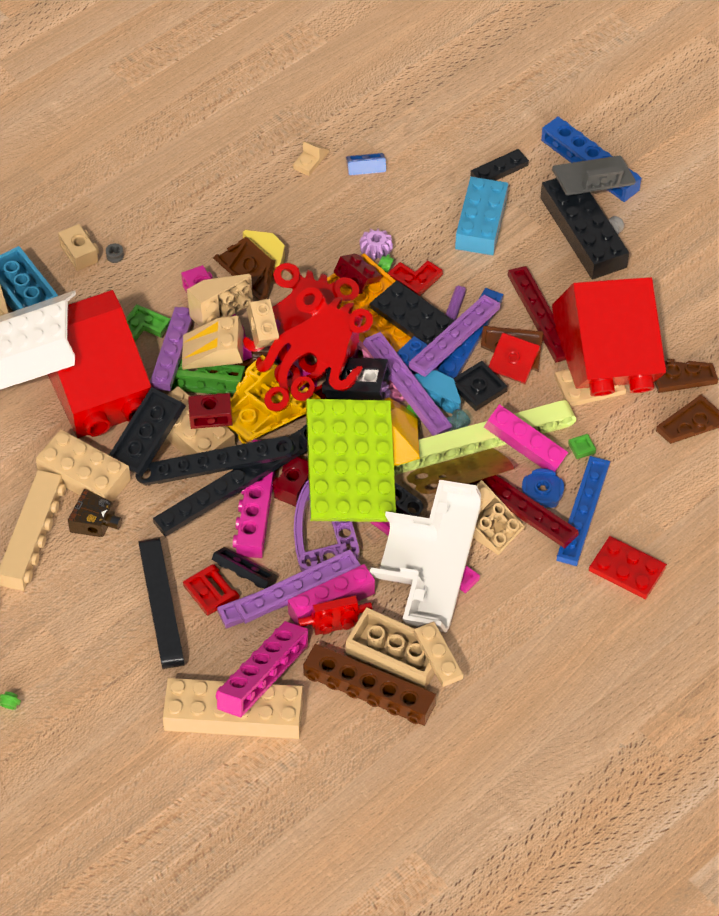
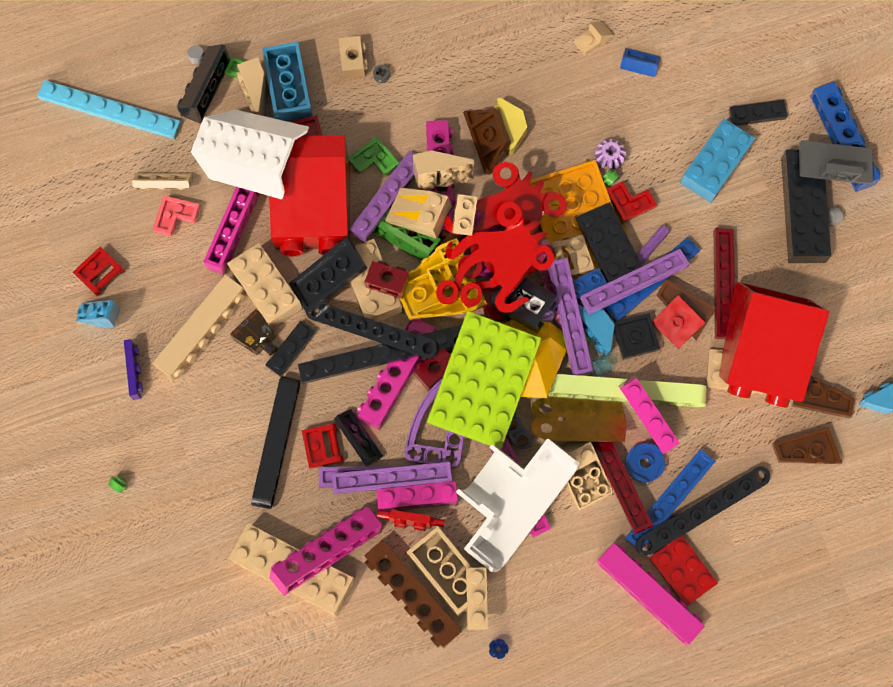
camera: 25 degrees right, 20 degrees up
(24, 429) = (230, 230): none -> dark pink brick
(135, 517) = (290, 349): none -> black plate
(356, 268) = (578, 180): dark red bracket -> none
(393, 335) = (577, 253): none -> tan plate
(483, 697) = (493, 648): none -> clear blue plate
(582, 446) = (699, 433): bright green tile -> none
(606, 596) = (650, 594): none -> dark pink brick
(618, 507) = (702, 510): none -> black plate

